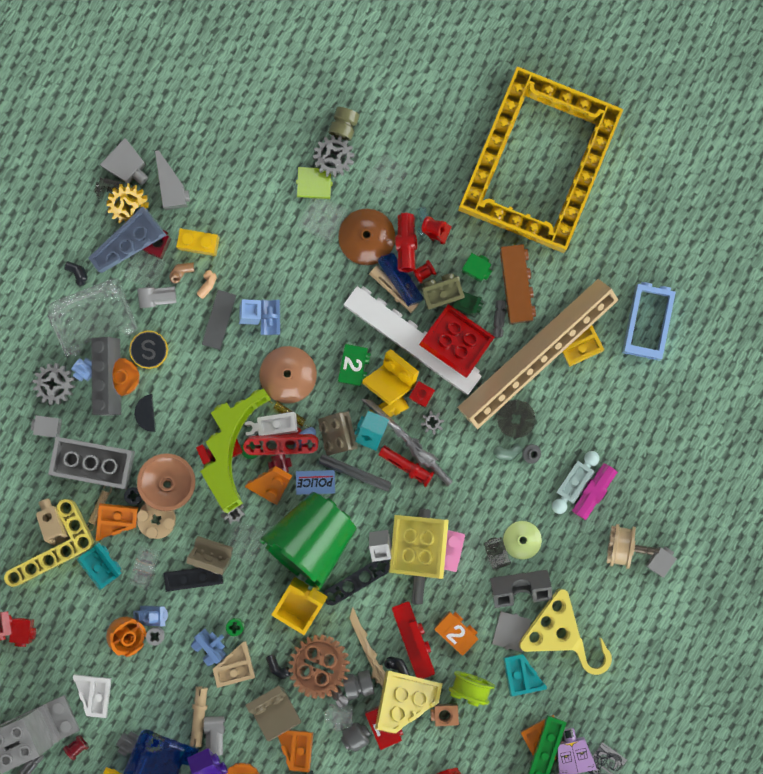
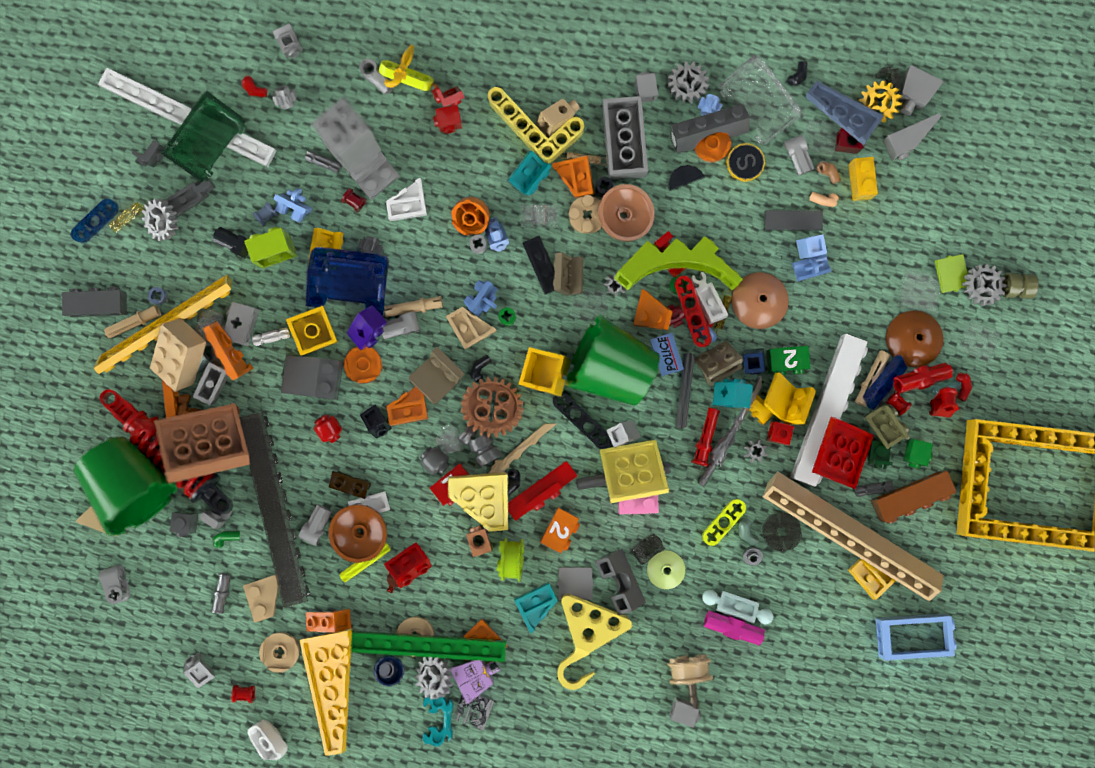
camera: 75 degrees right, 0 degrees up
(345, 399) = (754, 361): none -> dark blue brick
(425, 201) = (966, 384): none -> red arm
(499, 472) = (718, 536): none -> neon yellow beam

